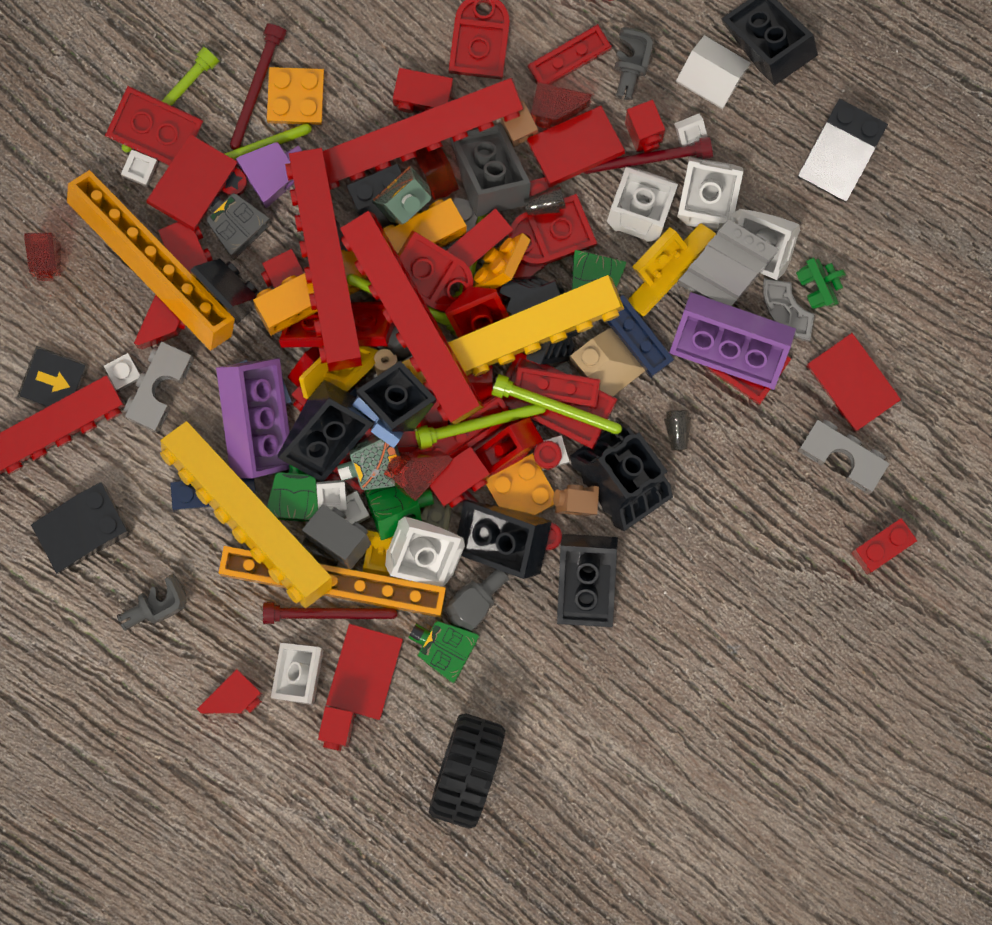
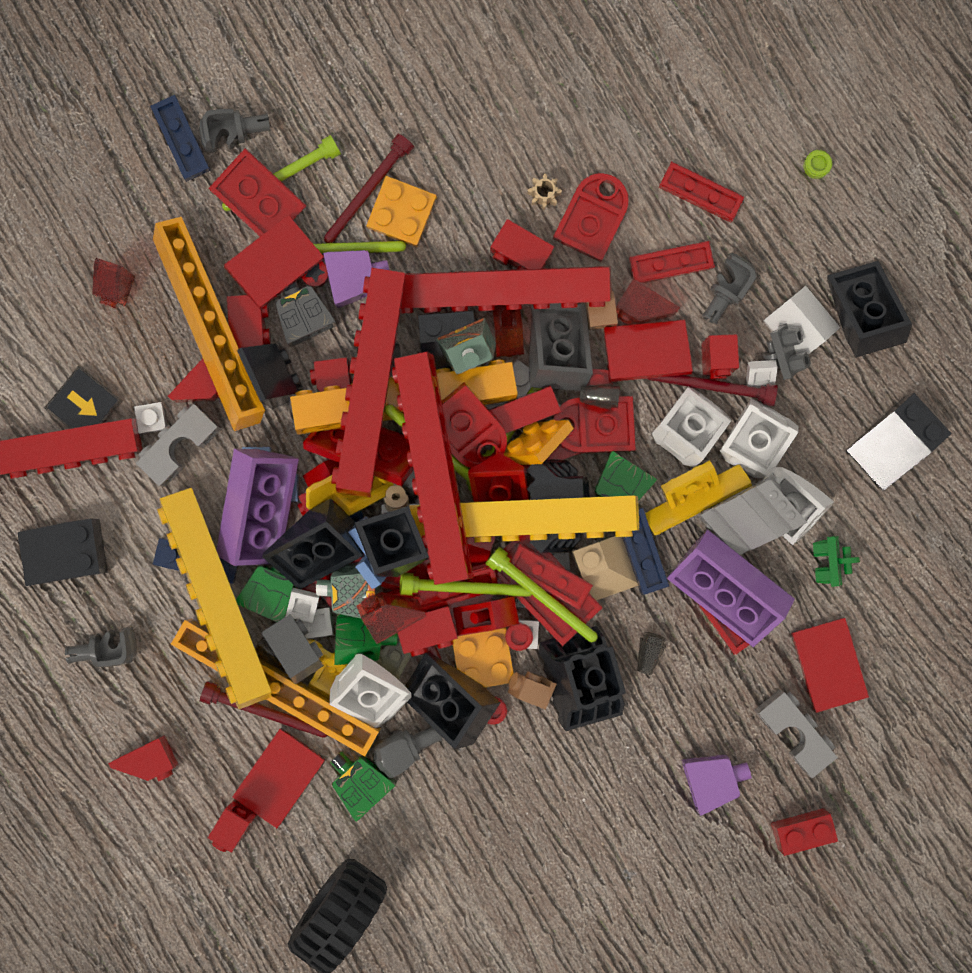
camera: 15 degrees right, 5 degrees up
(60, 98) = (180, 138): none -> dark blue plate
(106, 69) = (229, 122): none -> dark grey piece
(139, 168) = (231, 230): white plate -> none
(297, 673) = (215, 759): white slope -> none
(421, 23) = (538, 184): none -> tan gear
(587, 580) = (515, 765): black slope -> none
(704, 103) = (782, 350): none -> dark grey hips
(781, 528) = (713, 781): none -> medium lavender torso
(785, 310) = (790, 574): light grey tile -> none

